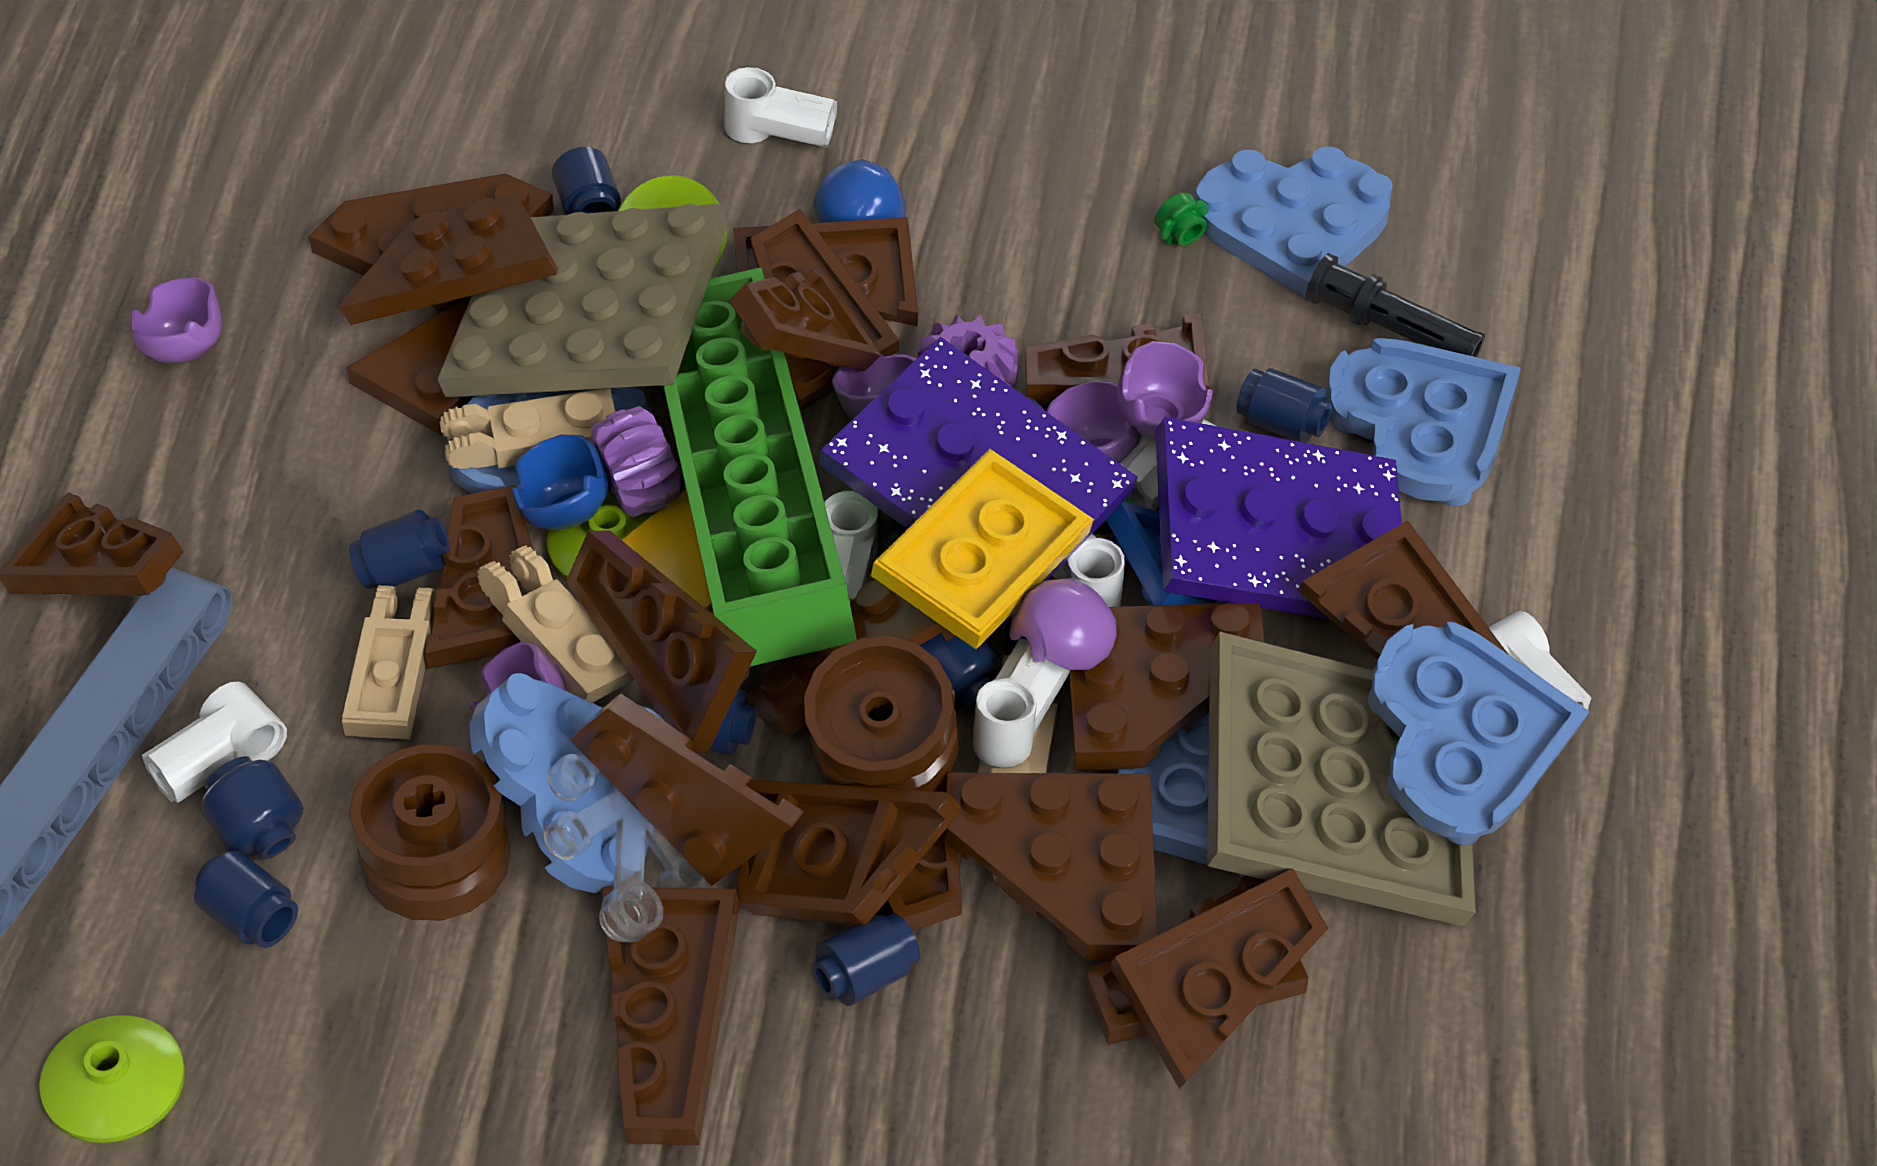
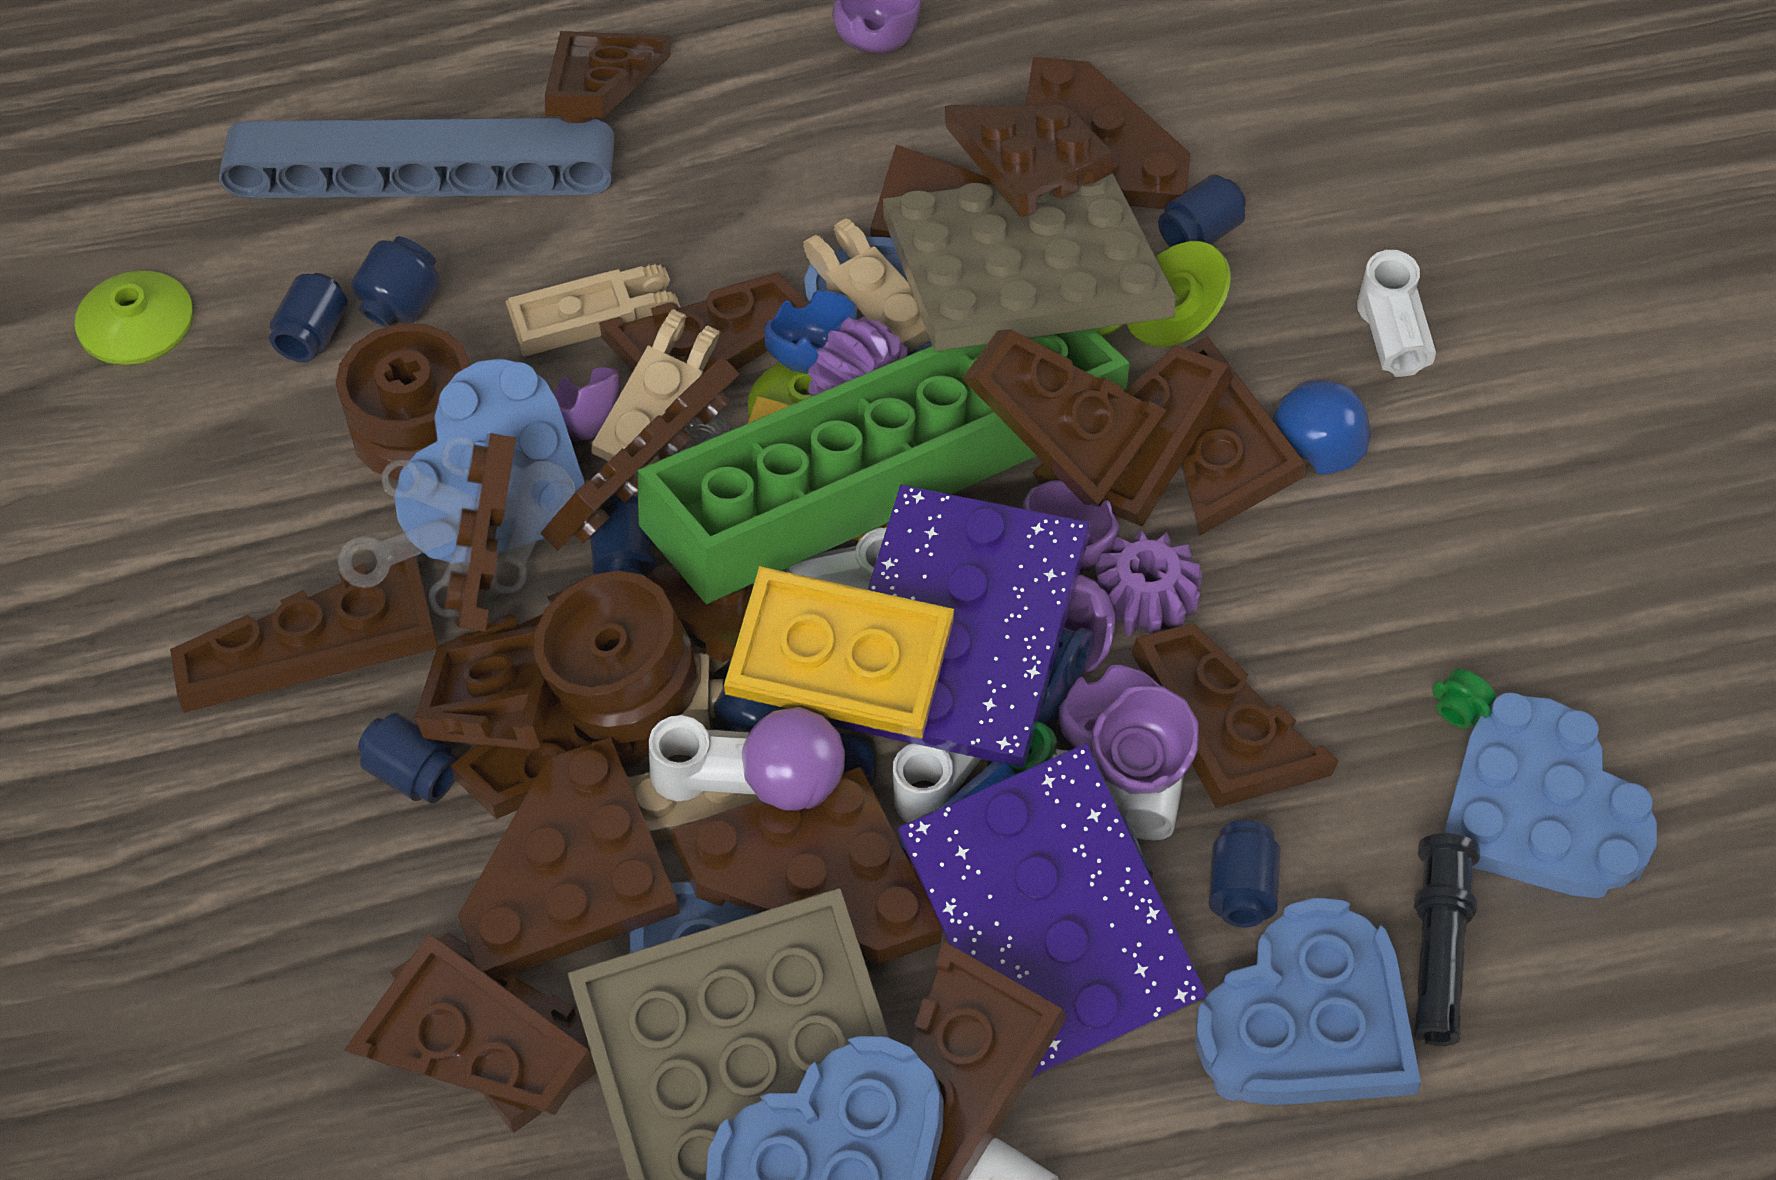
camera: 70 degrees right, 5 degrees up
(229, 727) = (466, 239): white piece -> none
(399, 550) = (700, 260): dark blue brick -> none

